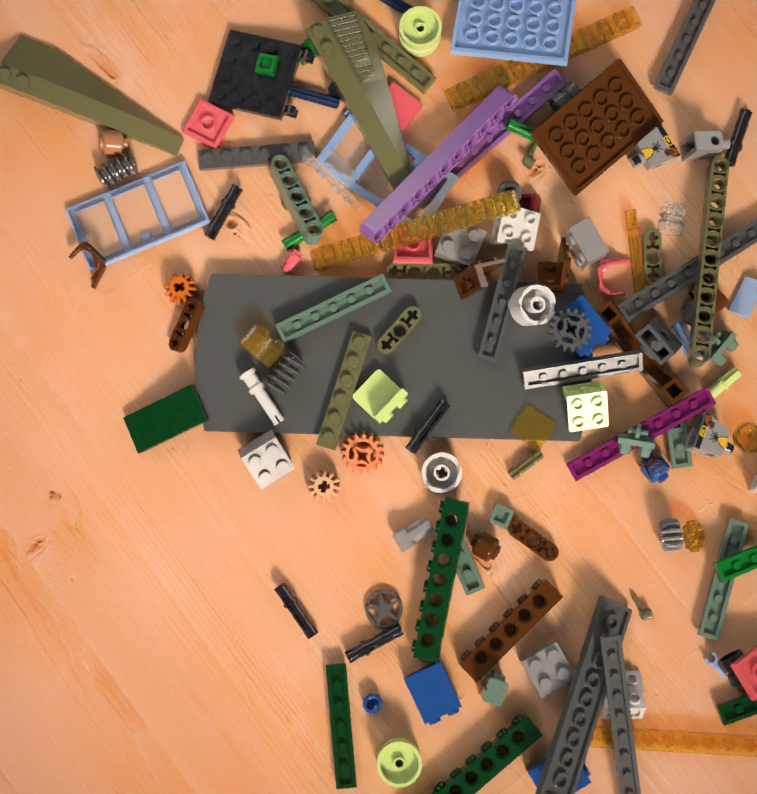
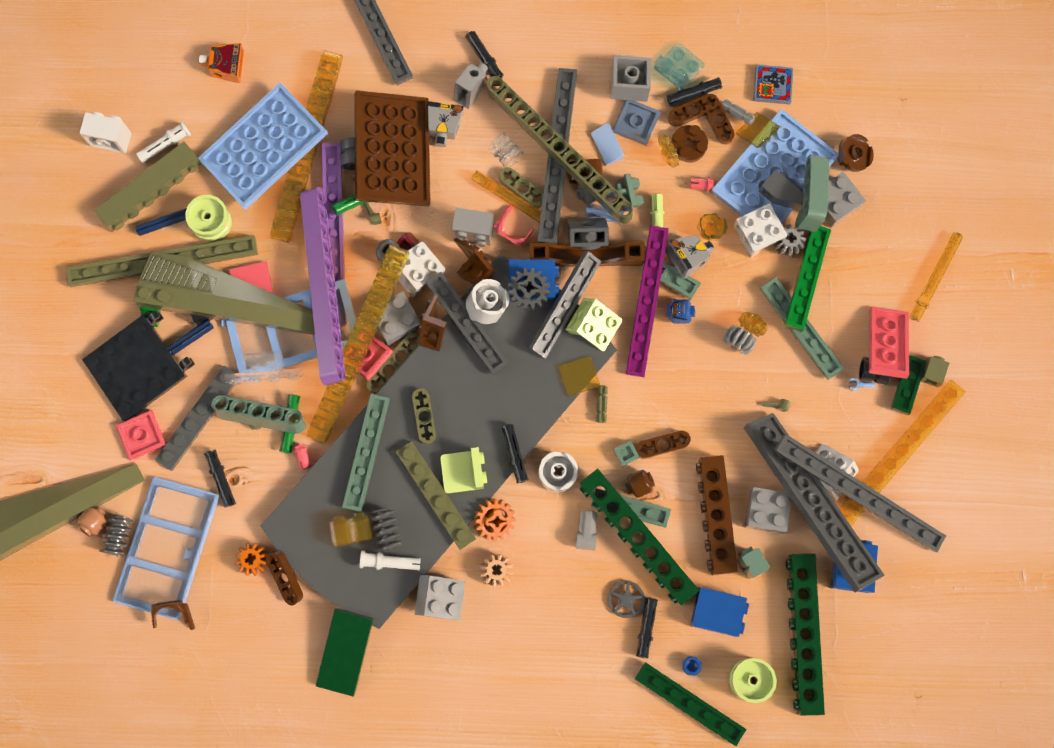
camera: 55 degrees left, 5 degrees down
(266, 64) = (134, 352): green tile -> none
(290, 602) = (574, 669): black pin -> none
(644, 443) = (657, 303): sand green hips -> none

